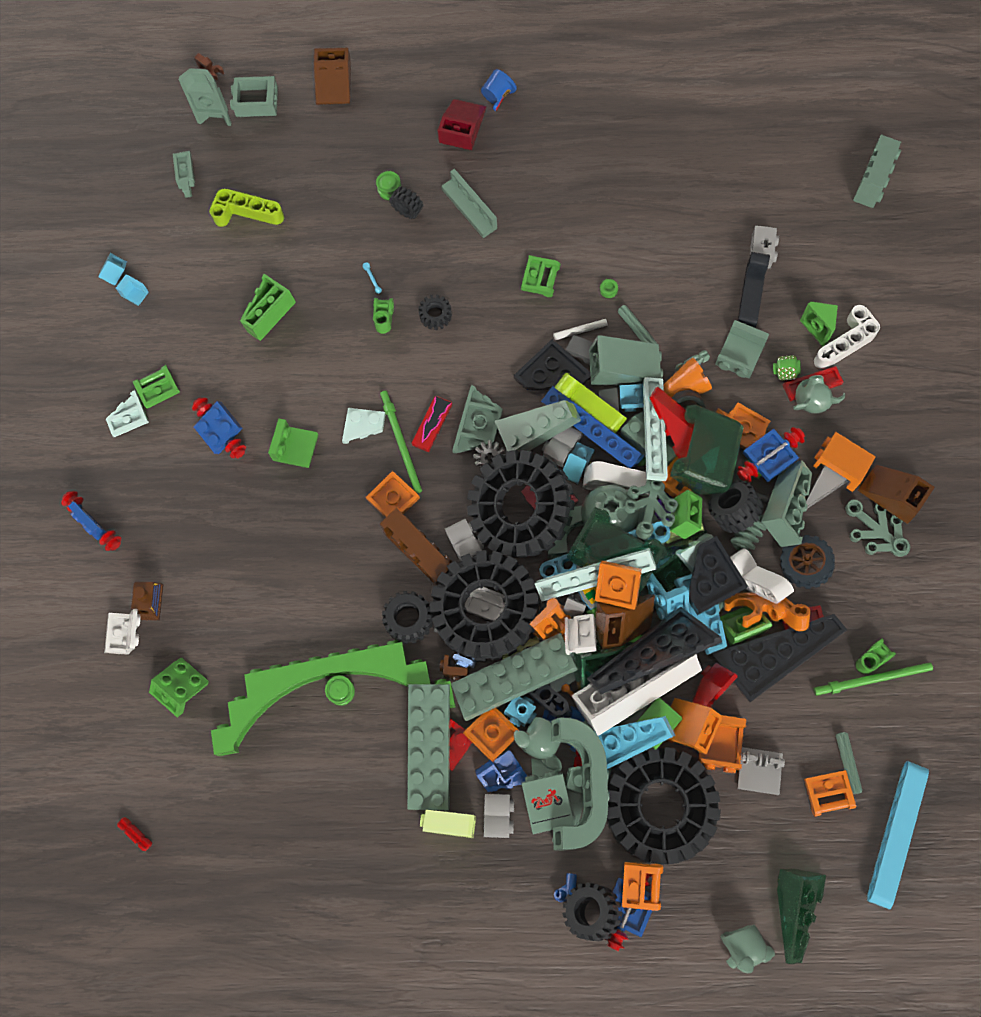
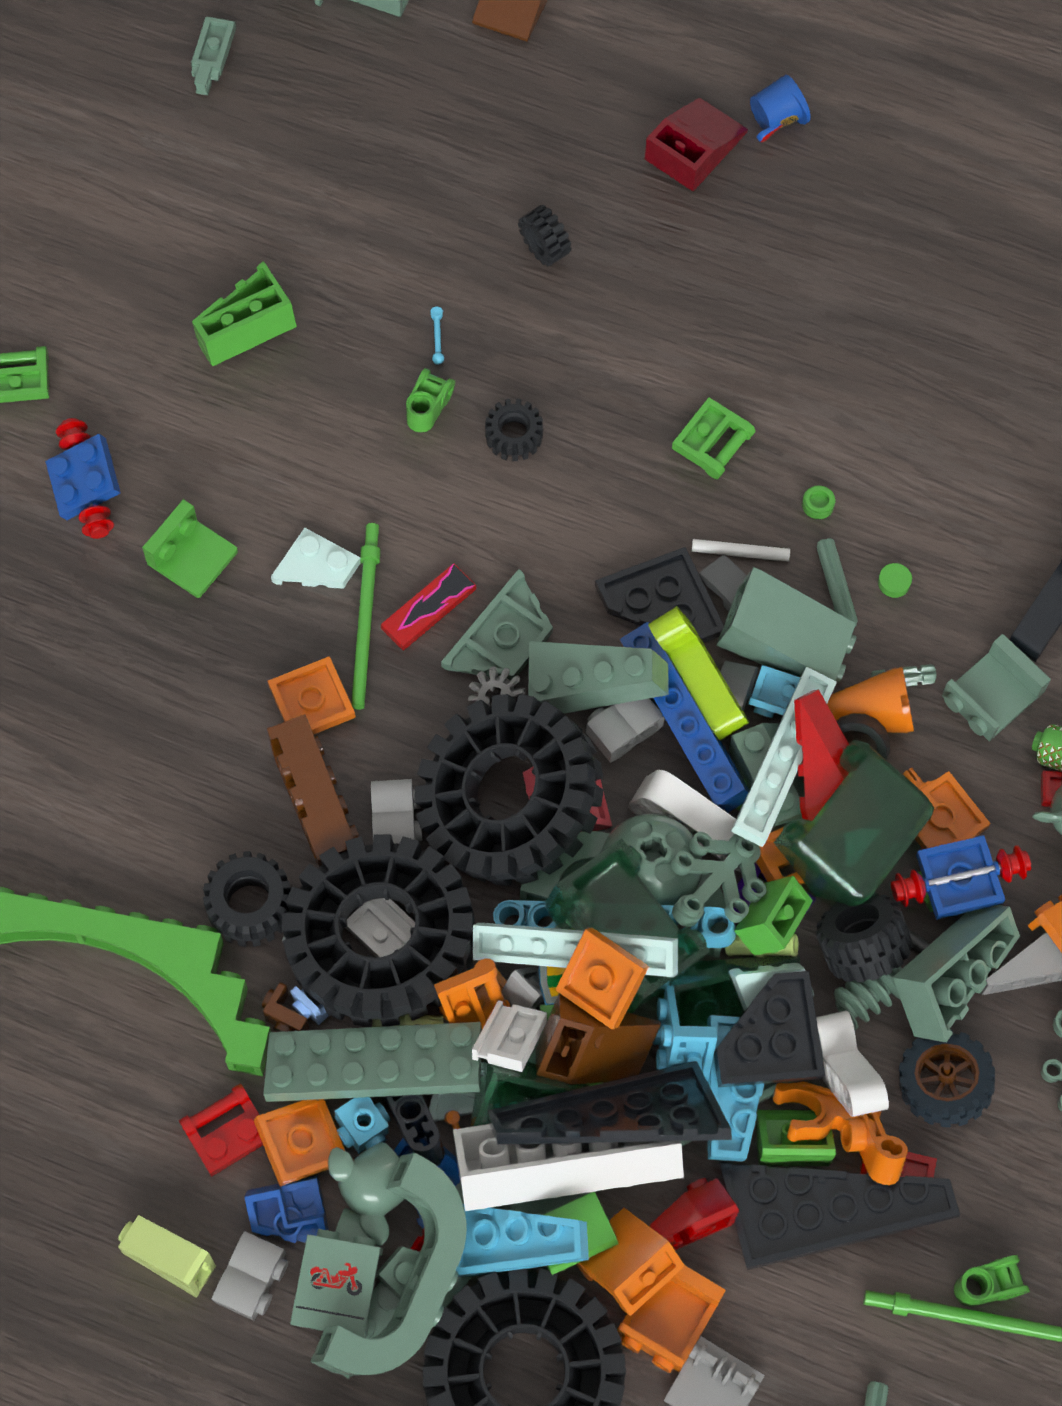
camera: 15 degrees right, 5 degrees down
(112, 269) = (30, 163): medium azure panel -> none
(132, 290) = (46, 207): medium azure panel -> none
(269, 210) = (262, 127): lime beam -> none
(340, 690) = (88, 971): bright green wheel -> none
(387, 184) = (529, 192): bright green wheel -> none
(428, 747) = (188, 1118): sand green plate -> none
(470, 204) = (648, 279): sand green fence -> none
(577, 462) = (636, 762): medium azure slope -> none
(665, 314) = (895, 580): none -> bright green tile

